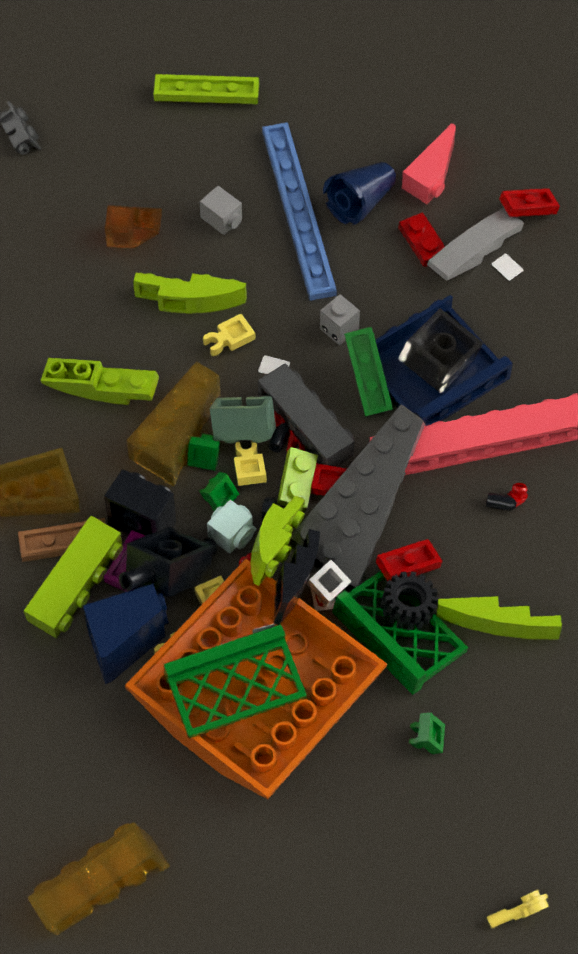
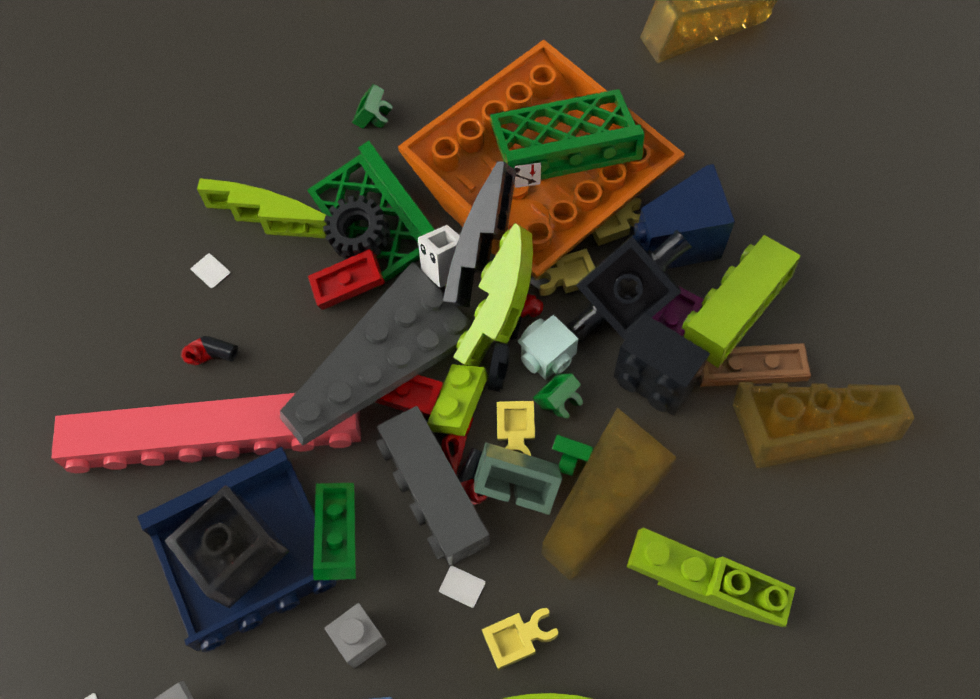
camera: 170 degrees left, 5 degrees up
(532, 570) = (210, 270): none -> white sticker

